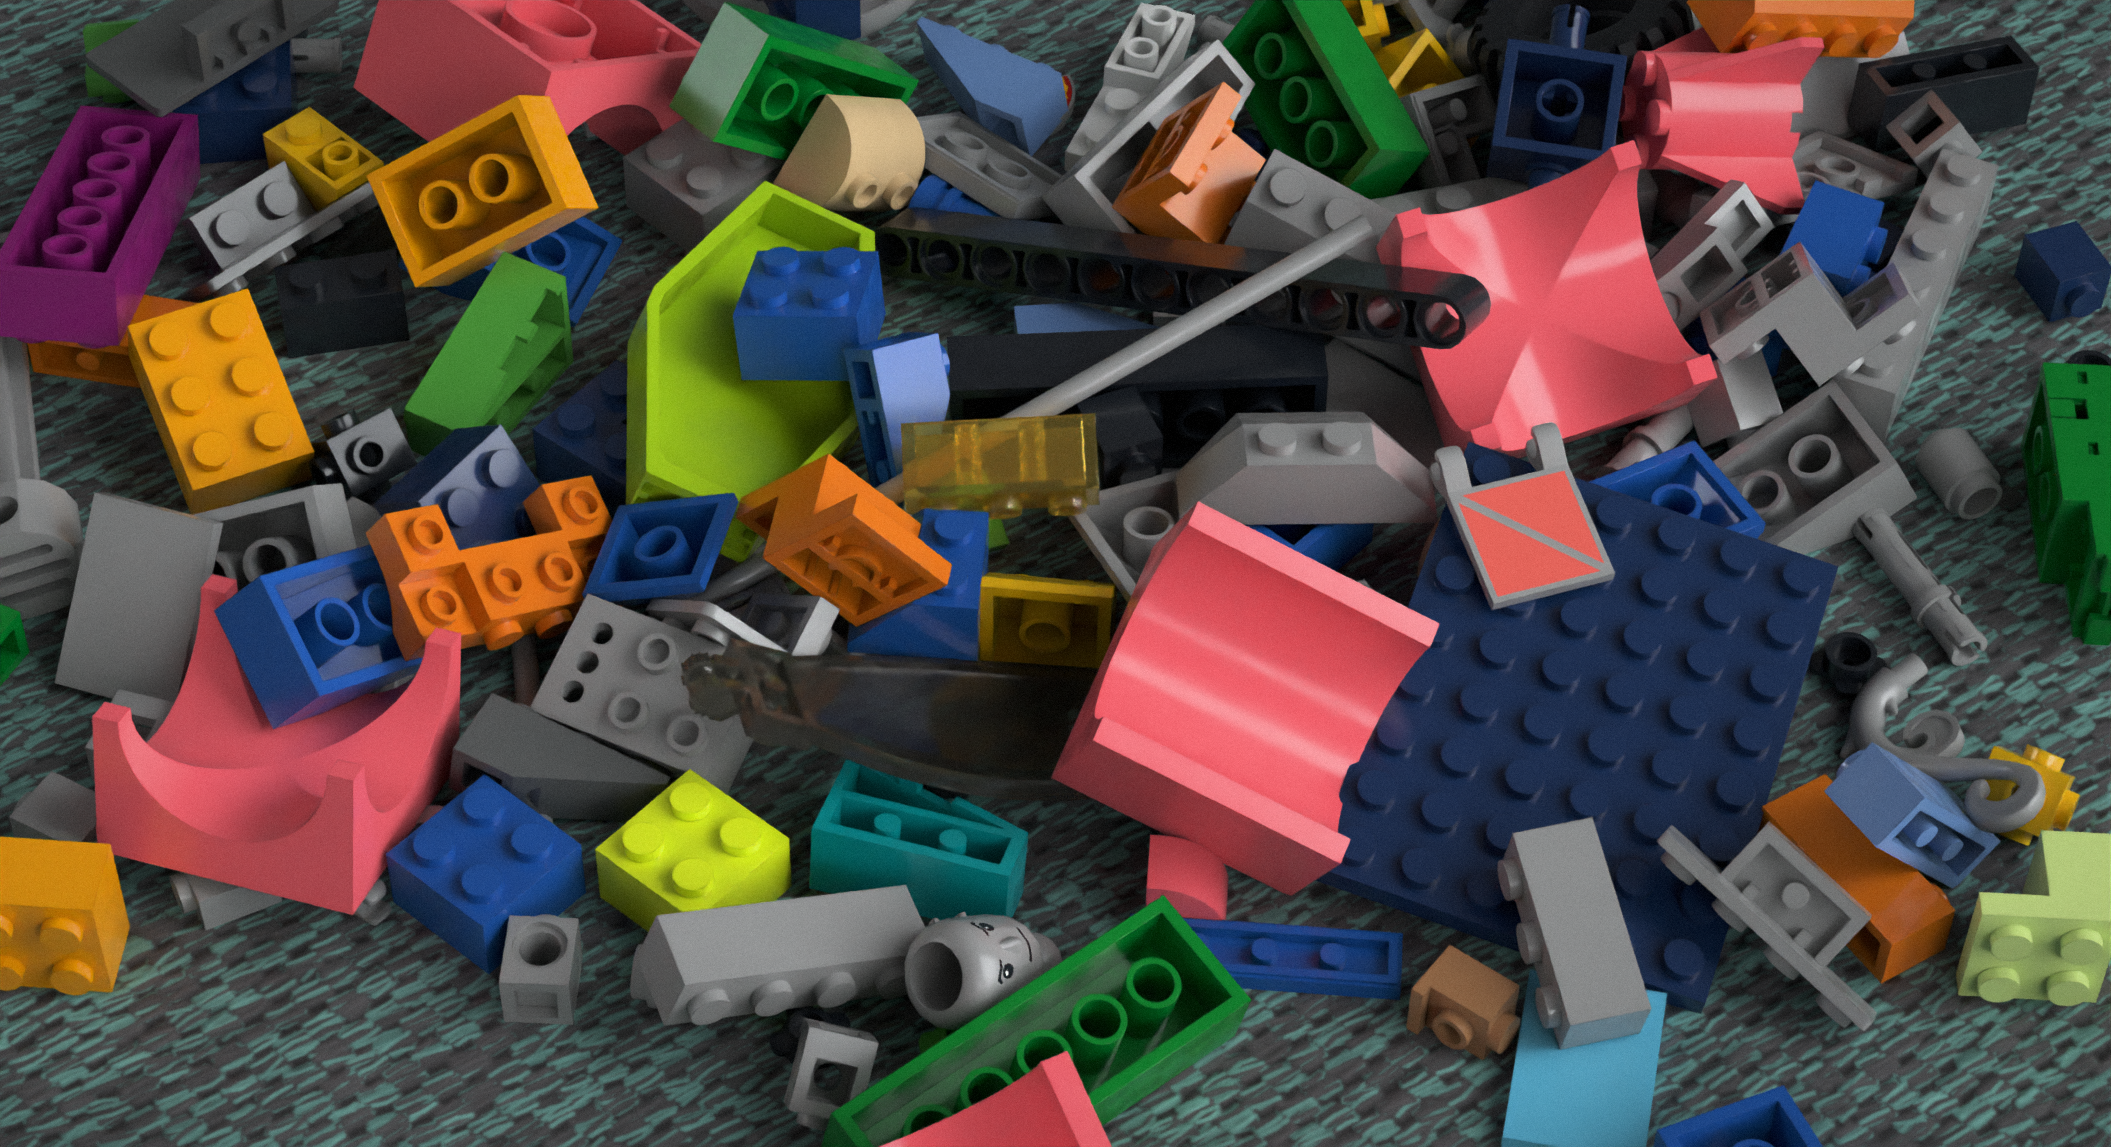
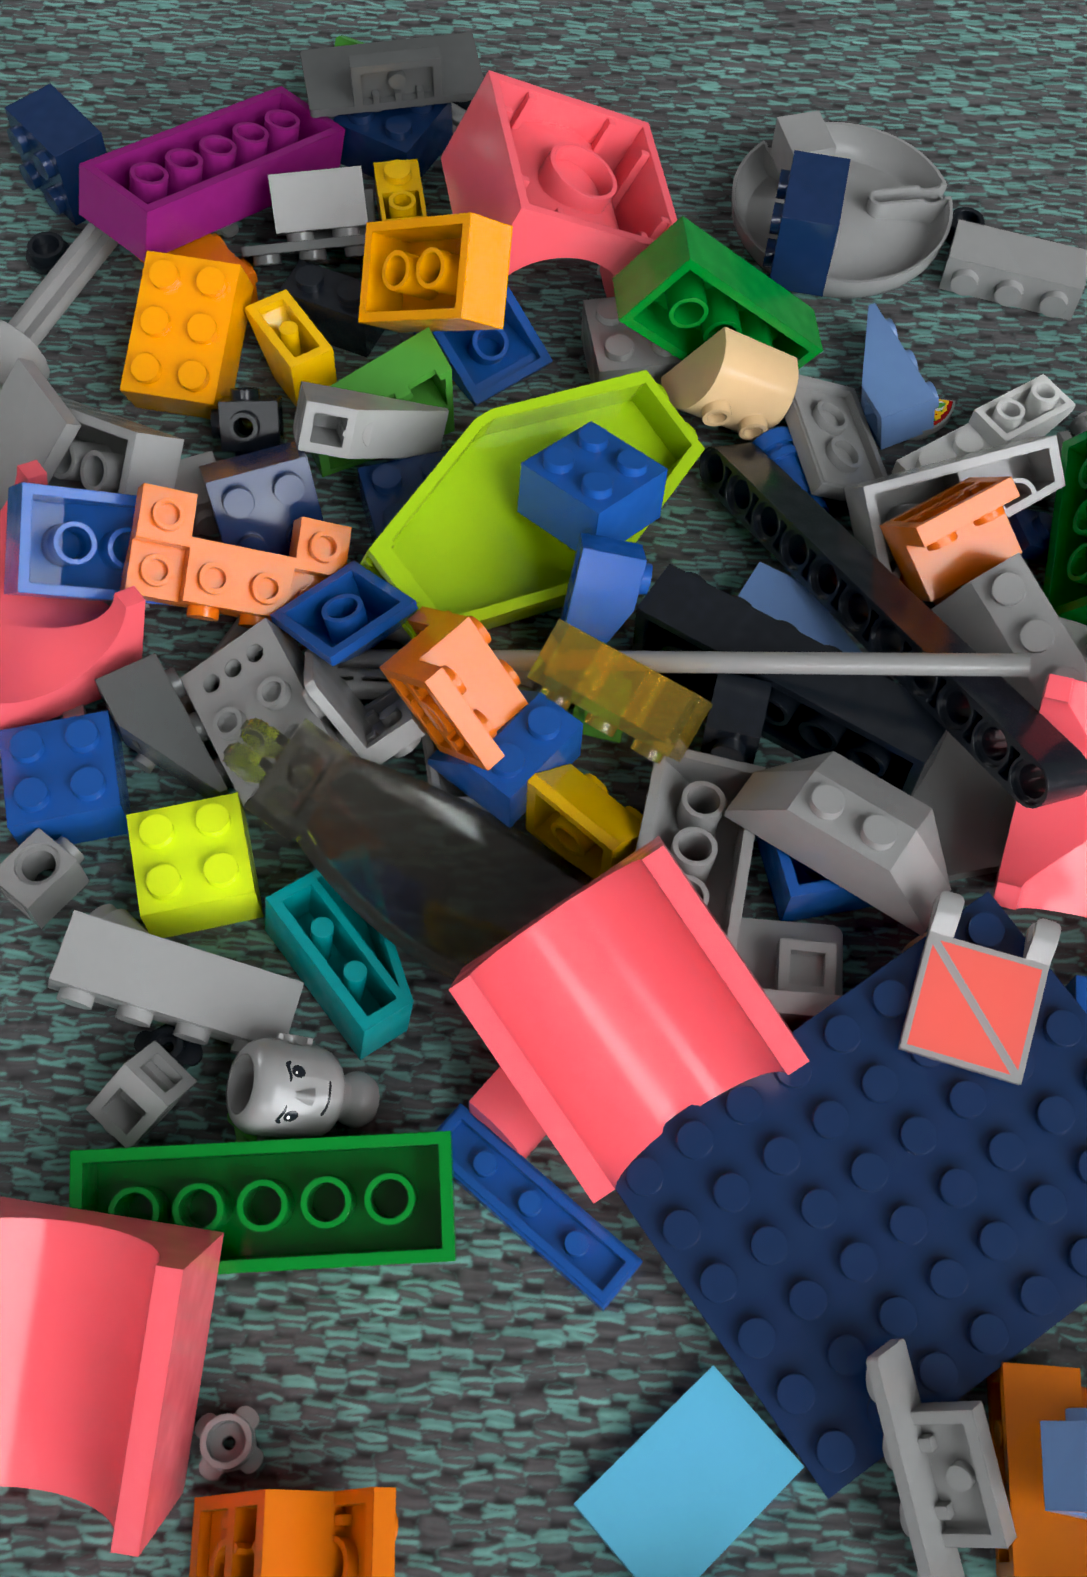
camera: 35 degrees right, 15 degrees up
(248, 198) = (318, 202): none -> light grey brick
(342, 358) = (291, 343): none -> yellow slope
(512, 376) = (365, 424): none -> light grey slope
(1465, 1004) = (634, 1366): medium nougat brick -> none
(1573, 934) = (746, 1383): light grey brick -> none

